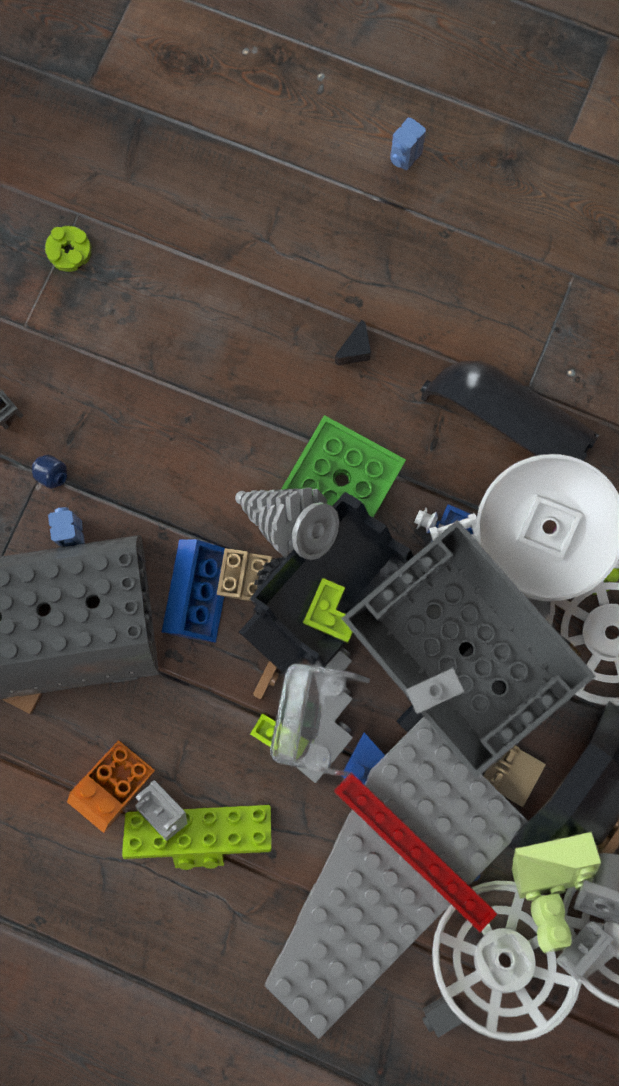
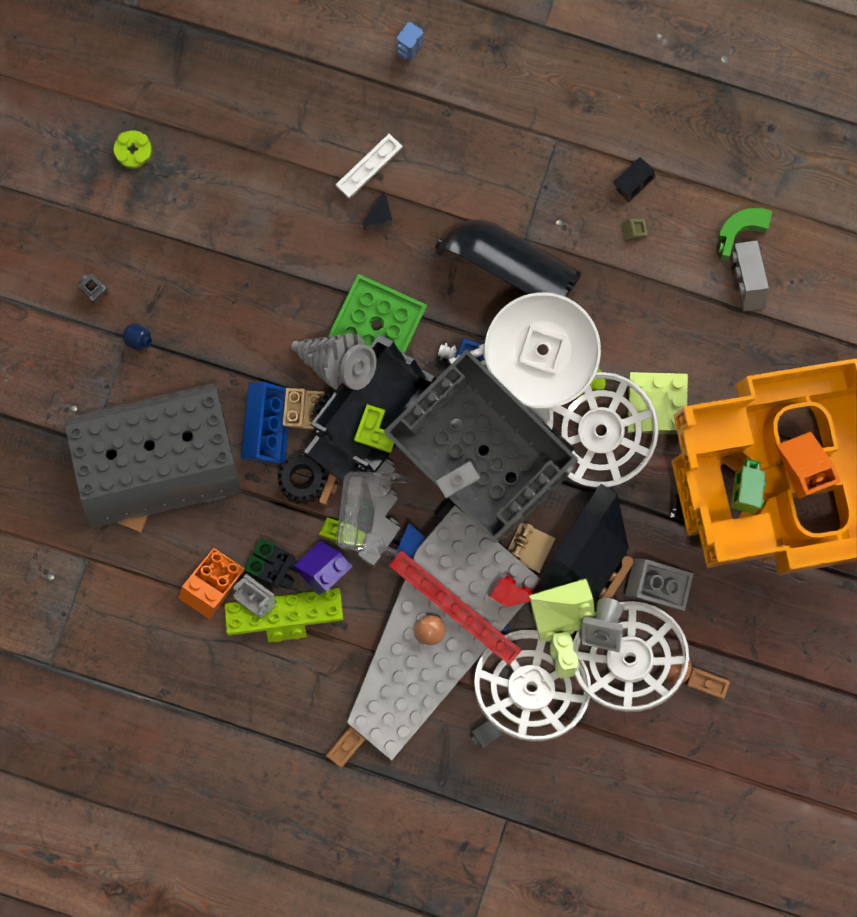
camera: 10 degrees left, 0 degrees up
(65, 527) = (156, 381): medium blue brick -> none
(192, 777) = (275, 571): none -> black hips
(213, 664) = (301, 495): none -> black tyre
(250, 780) = (322, 567): none -> dark purple slope
(260, 1017) = (346, 747): none -> medium nougat plate
(347, 288) = (369, 166): none -> white plate
(380, 878) = (429, 630): none -> nougat hair
(486, 840) = (508, 593): none -> red slope
(584, 950) = (590, 671): light grey hinge -> none

